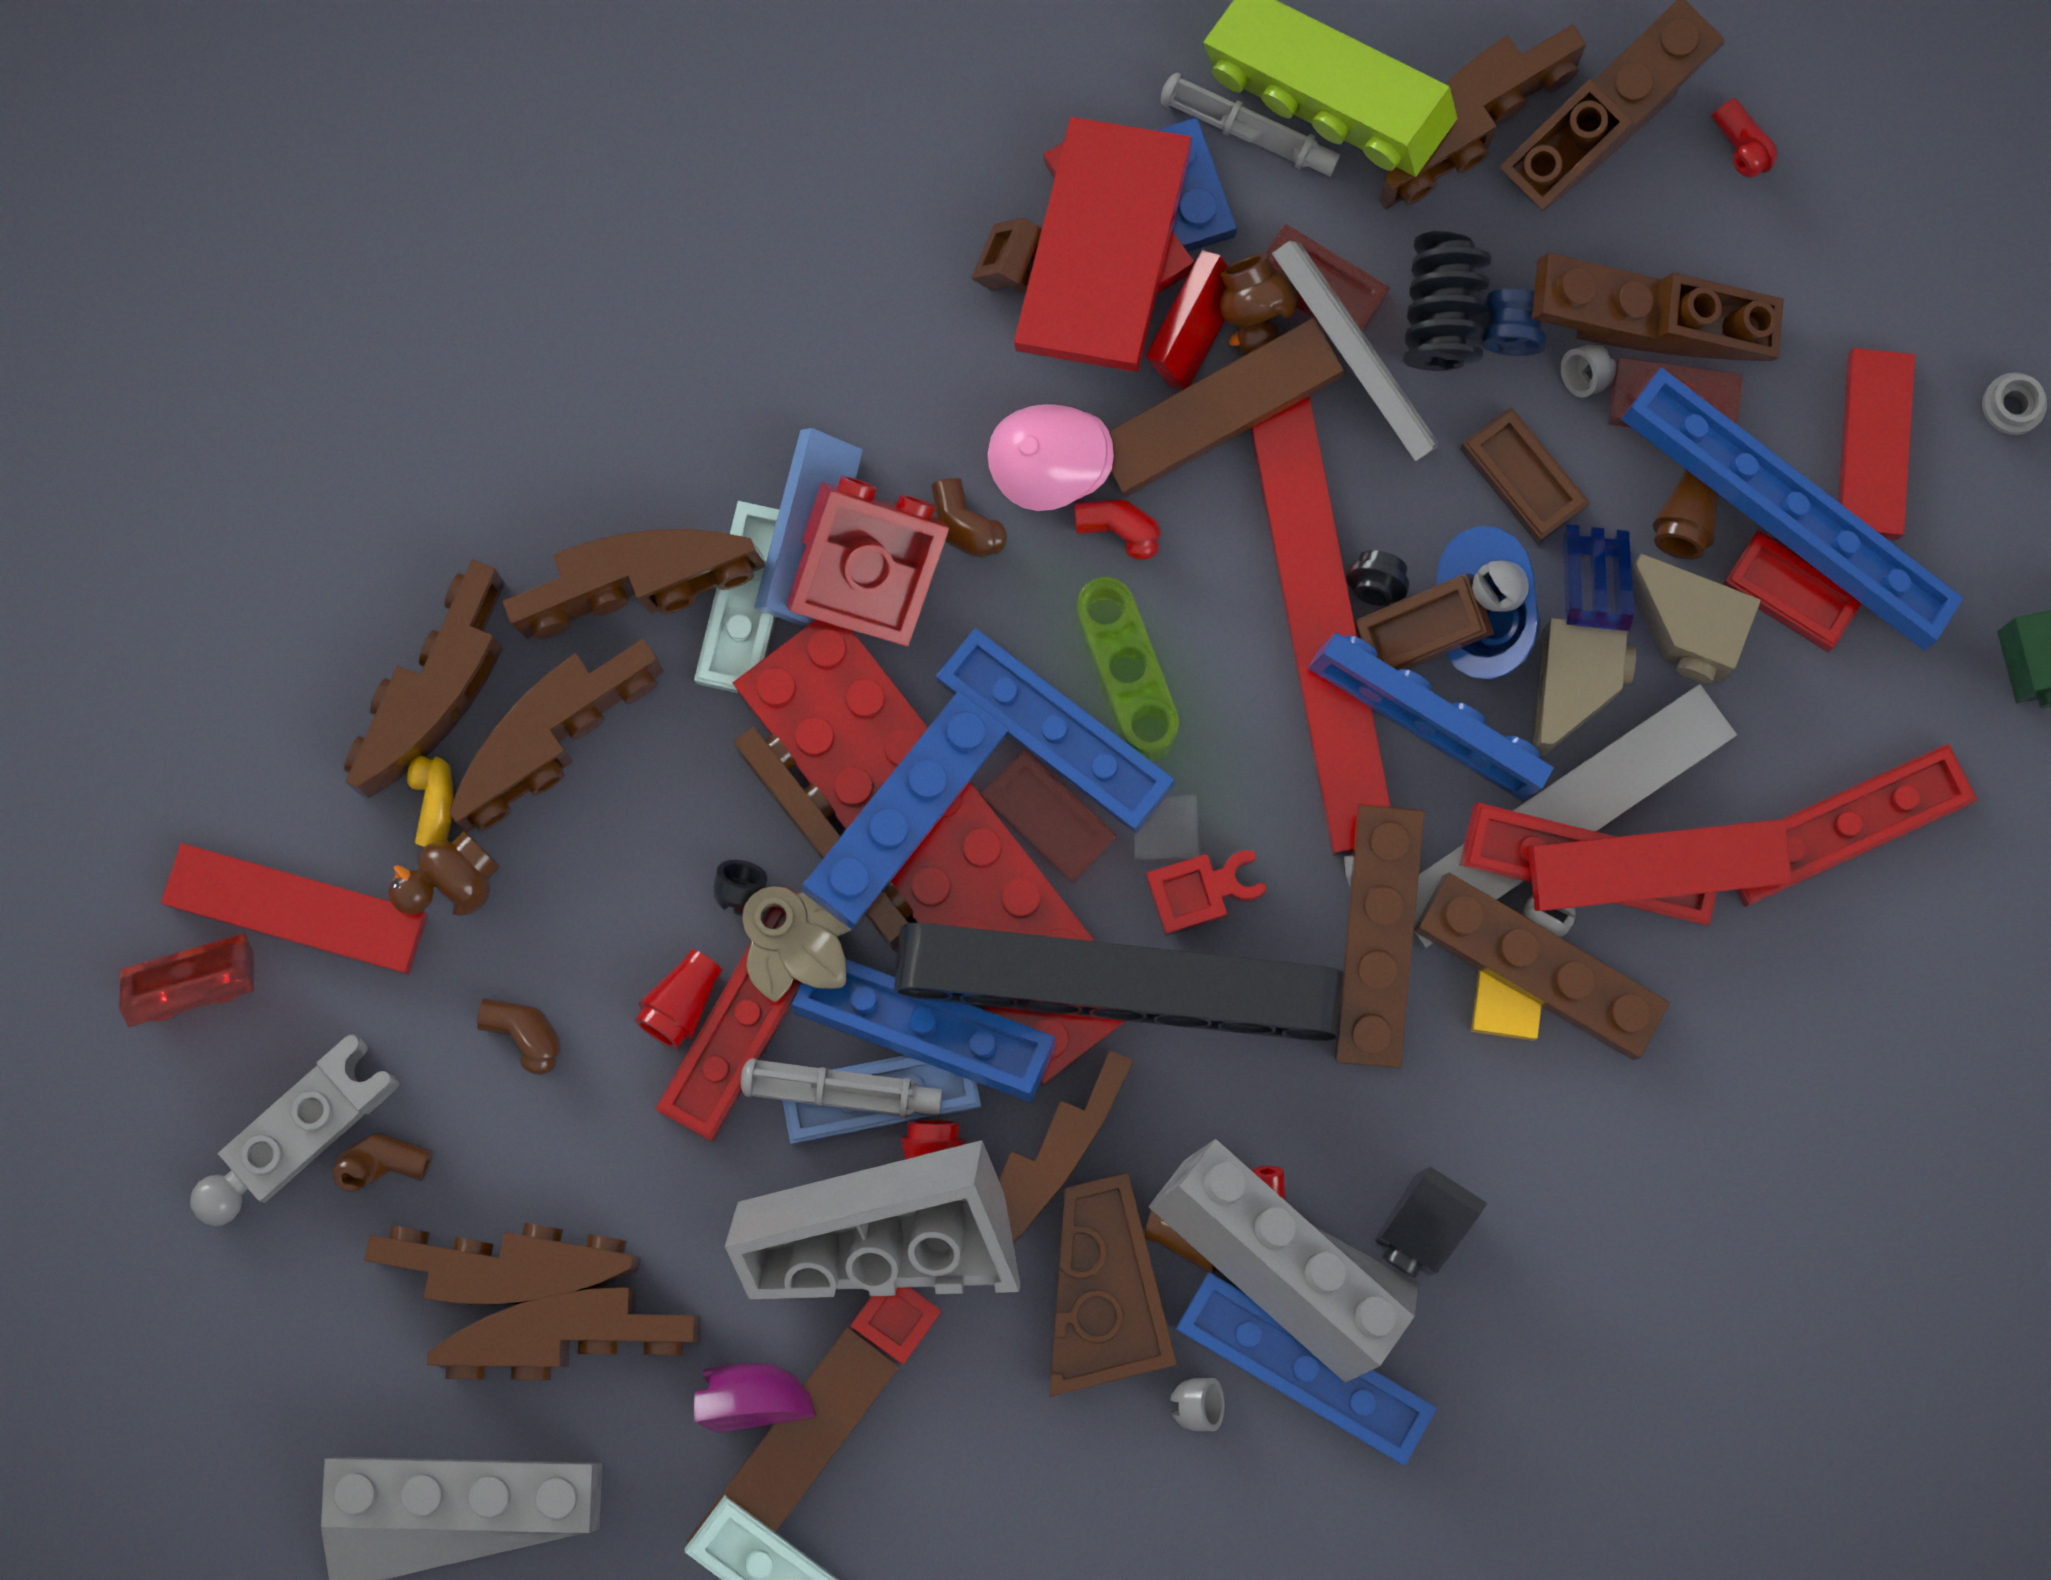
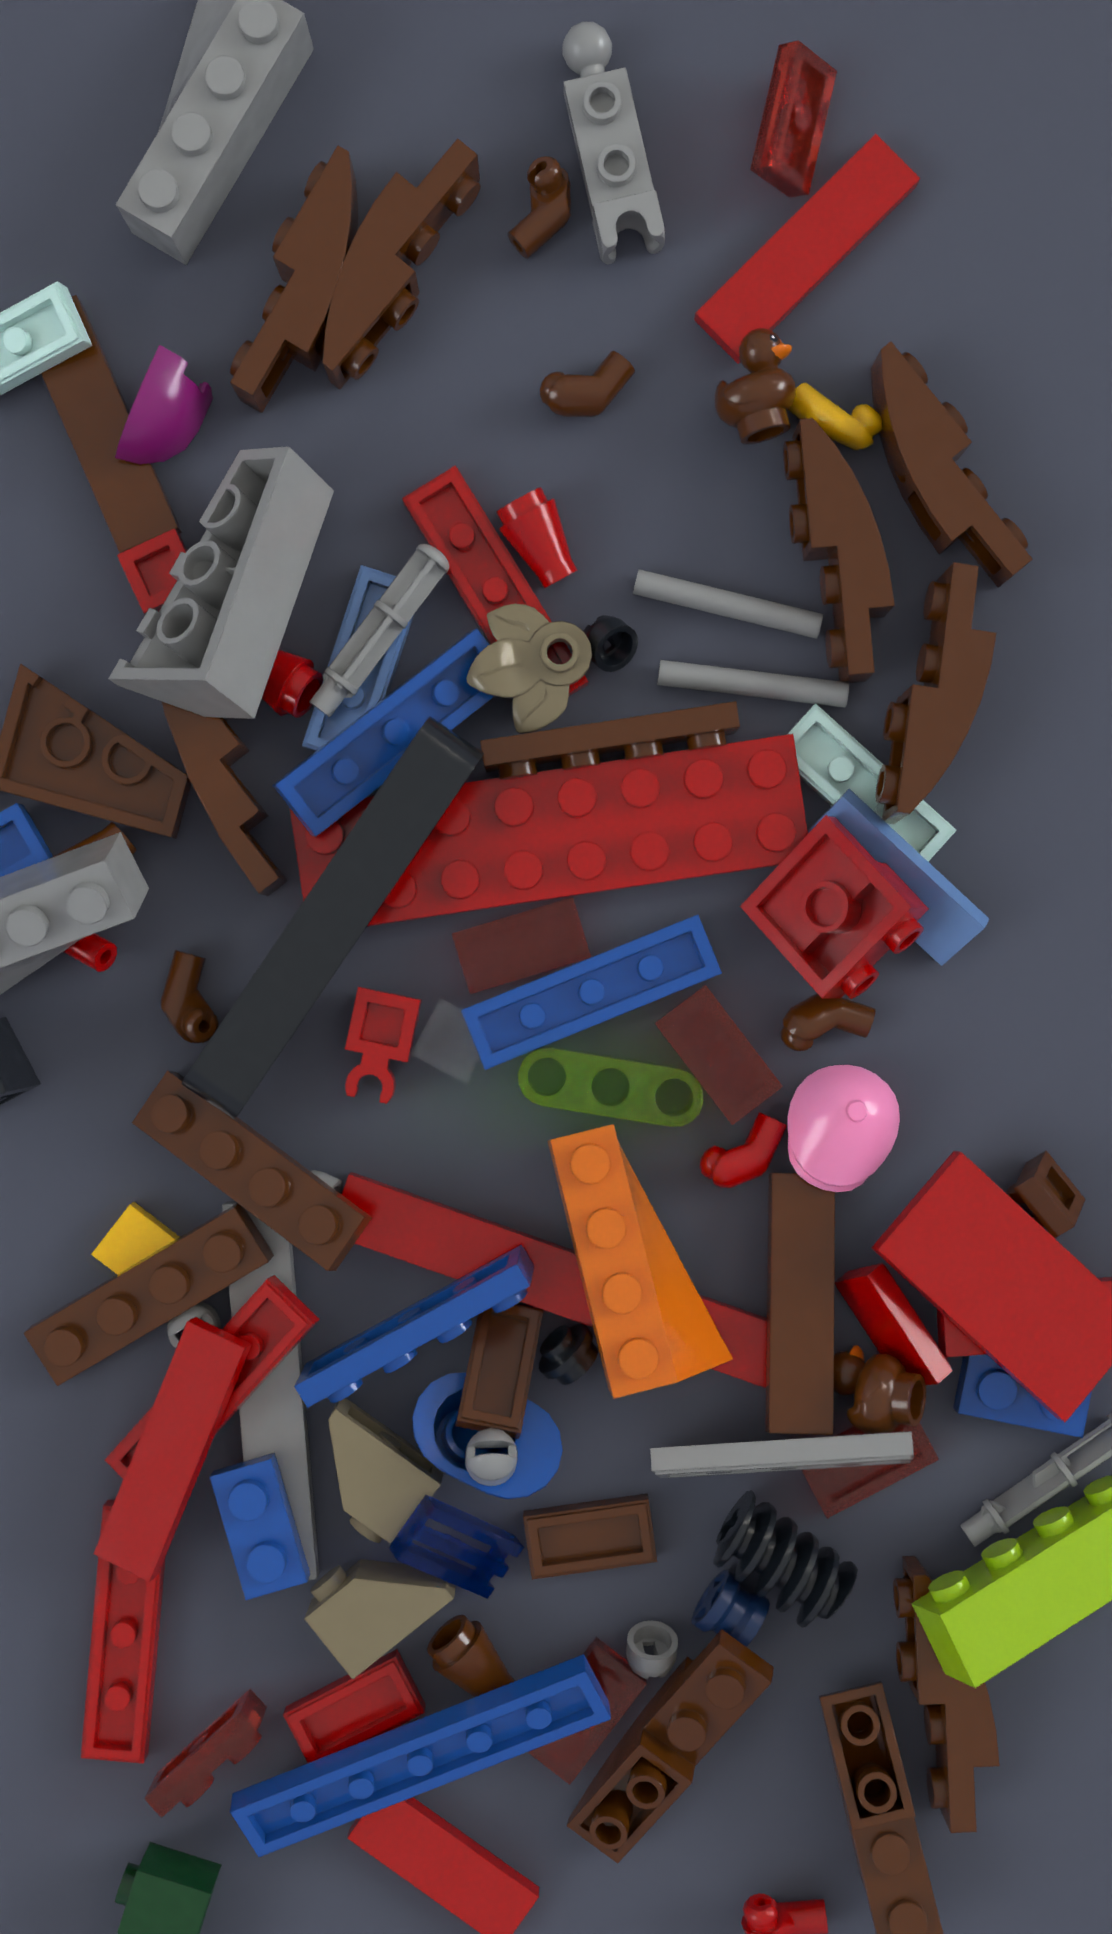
camera: 115 degrees right, 10 degrees up
(647, 804) = (728, 604): none -> light grey bar
(706, 744) = (753, 683): none -> light grey bar
(904, 810) = (589, 817): blue plate -> none
(1046, 594) = (718, 1054): none -> clear red plate
(1269, 1082) = (184, 1003): none -> reddish brown arm
(1286, 552) = (635, 1285): none -> orange wedge
(1682, 755) = (260, 1526): none -> blue plate
(1926, 698) = (189, 1772): none -> clear red plate

